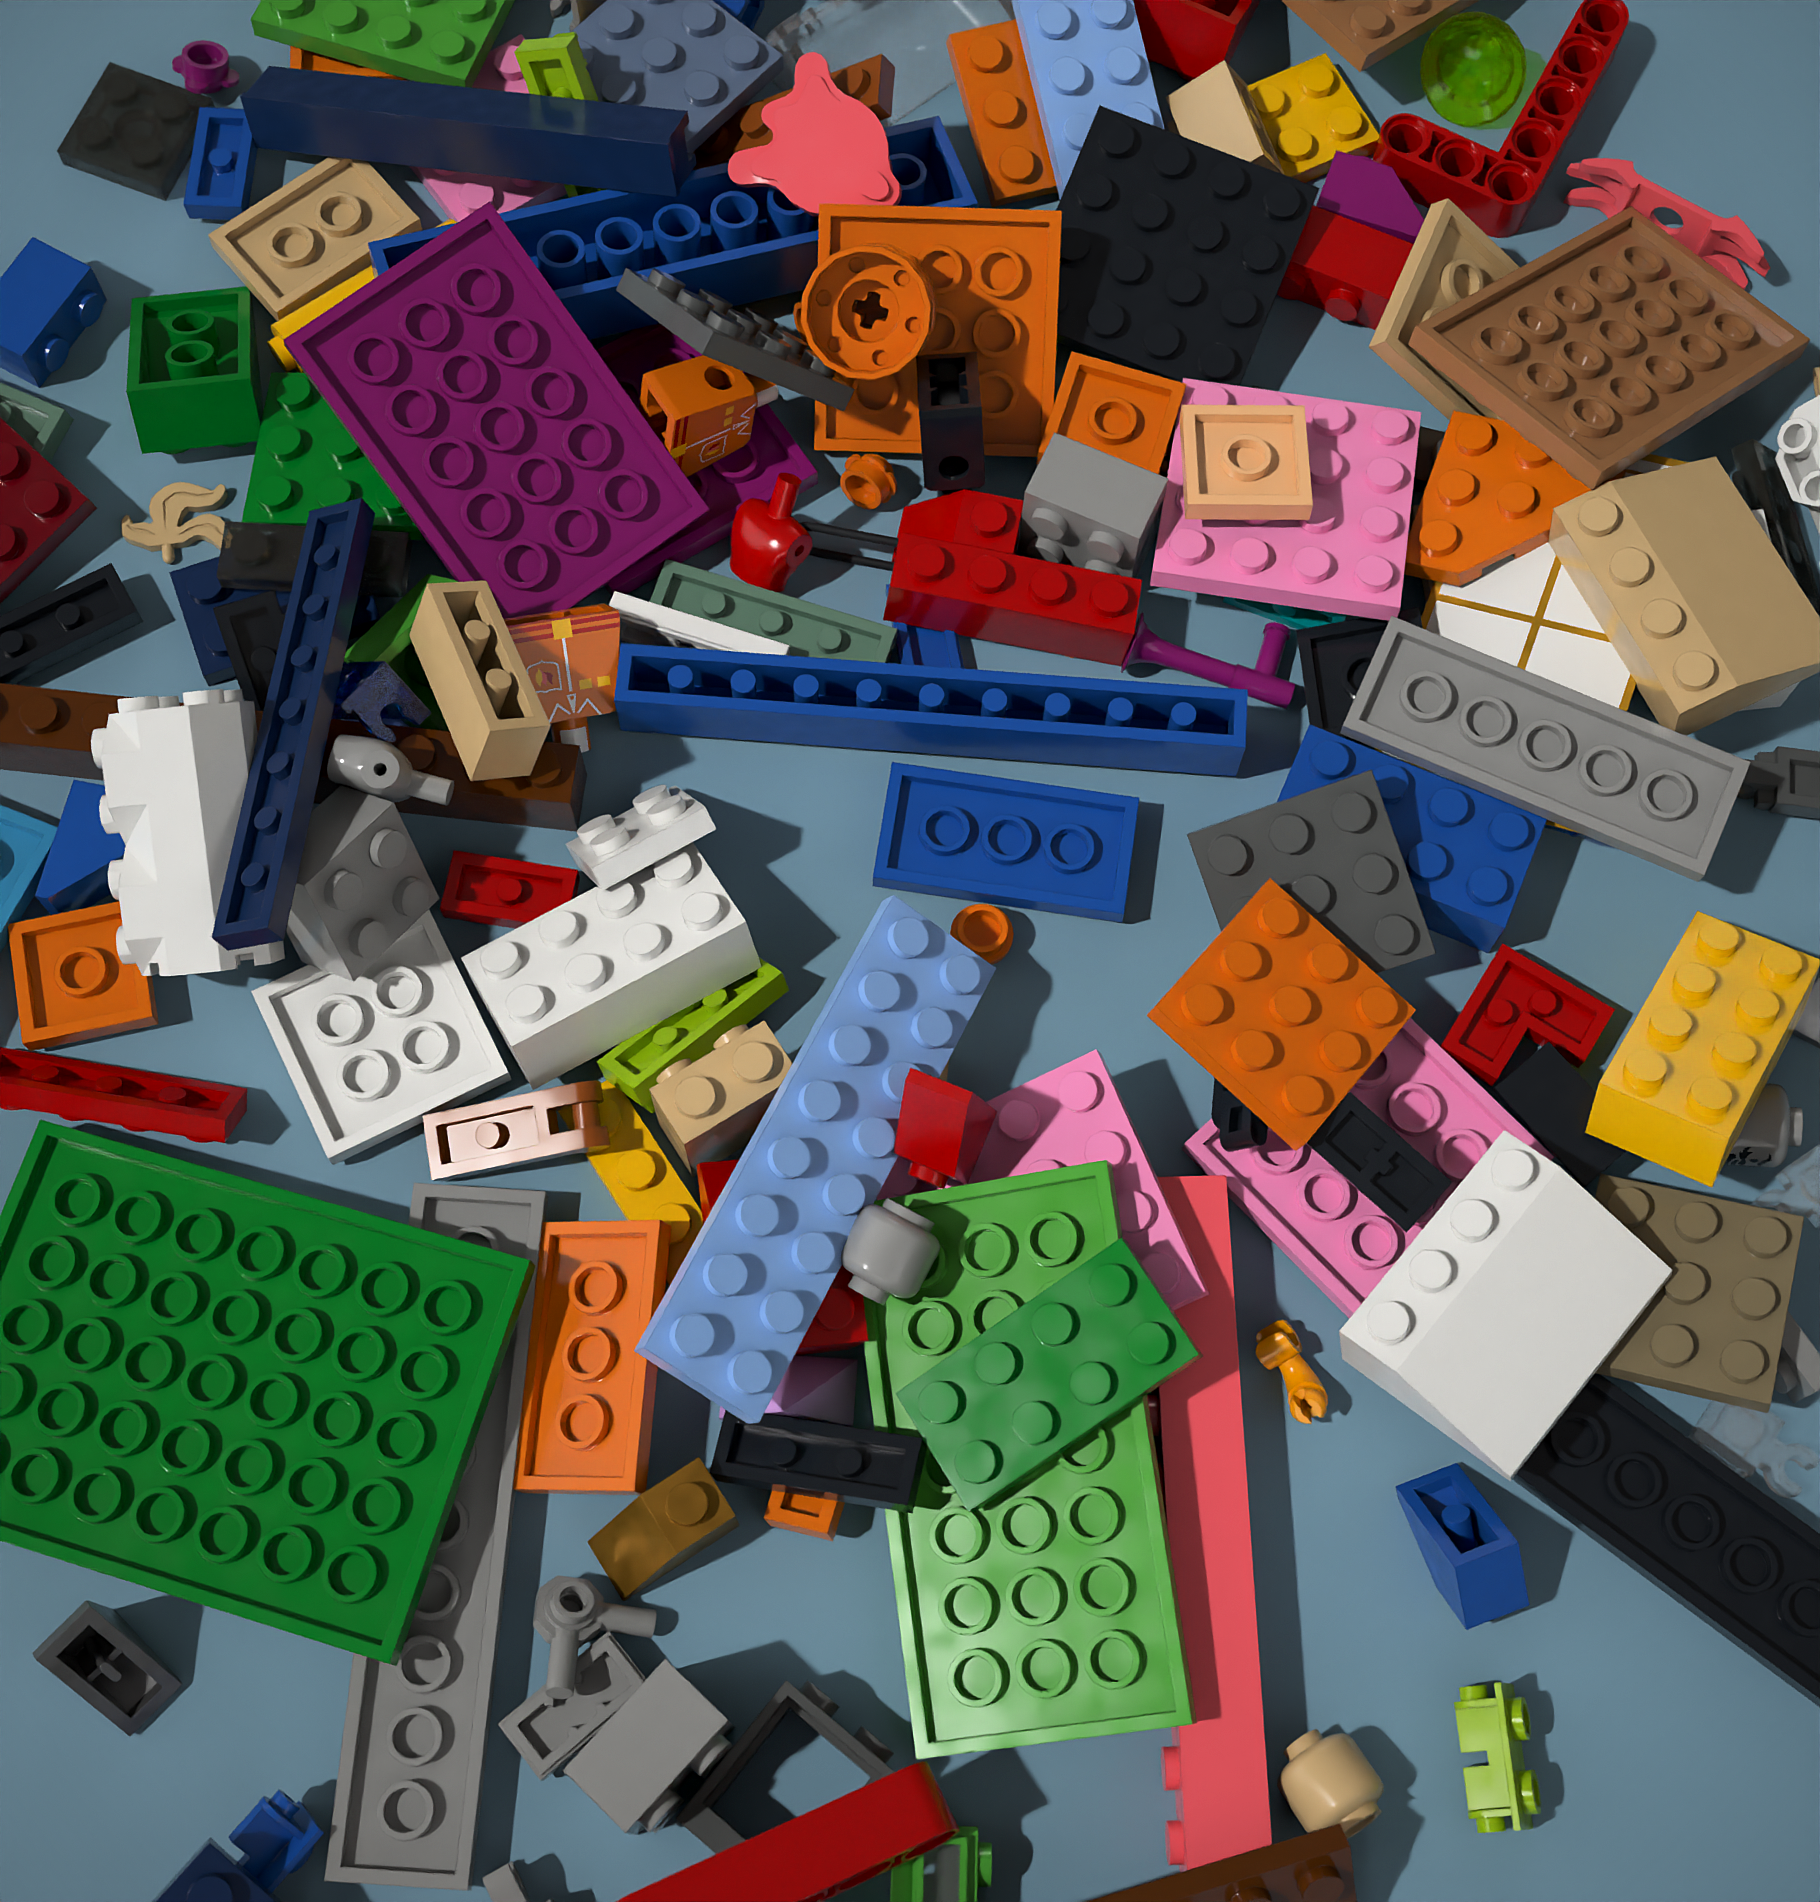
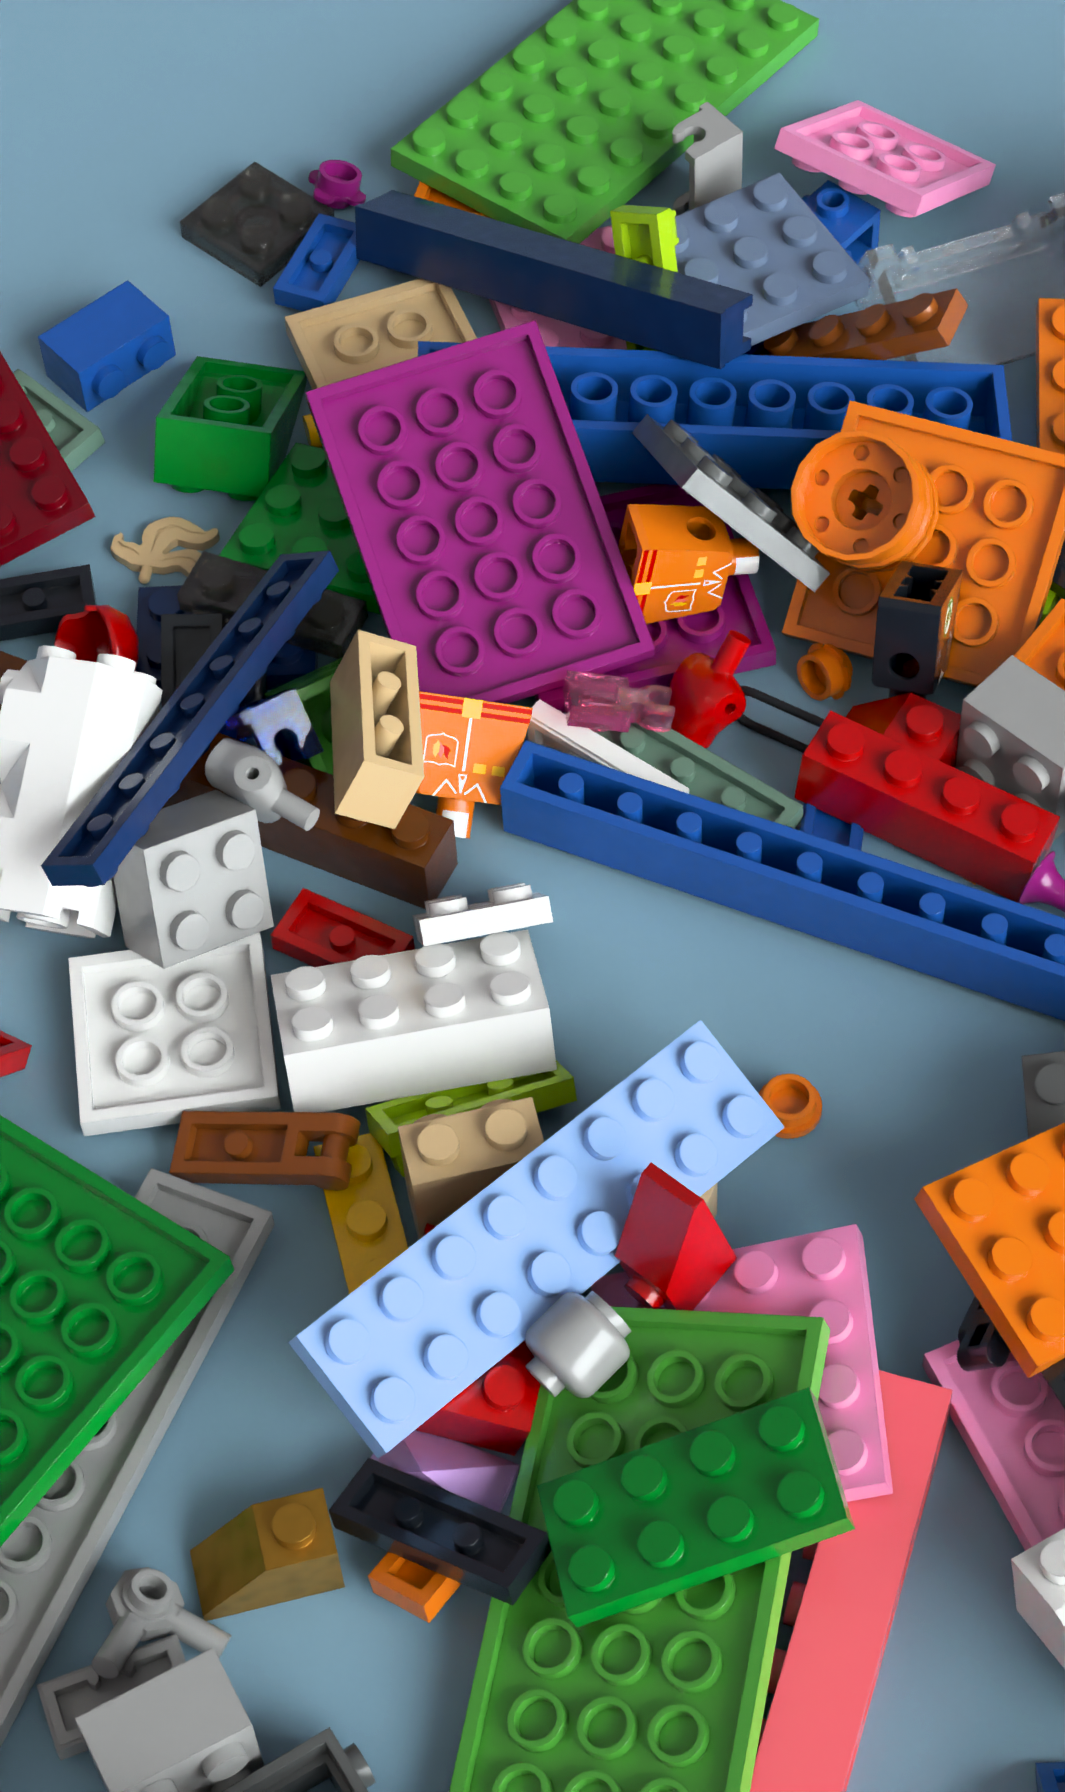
camera: 25 degrees right, 15 degrees down
(154, 655) = (98, 631): none -> red hair
(584, 1383) = (248, 1384): orange plate -> none
(682, 579) = (610, 704): none -> clear pink plate
(821, 146) = (871, 354): coral tile -> none
(1006, 842) = (845, 1028): blue plate -> none
(1281, 1347) = (957, 1583): light orange arm -> none

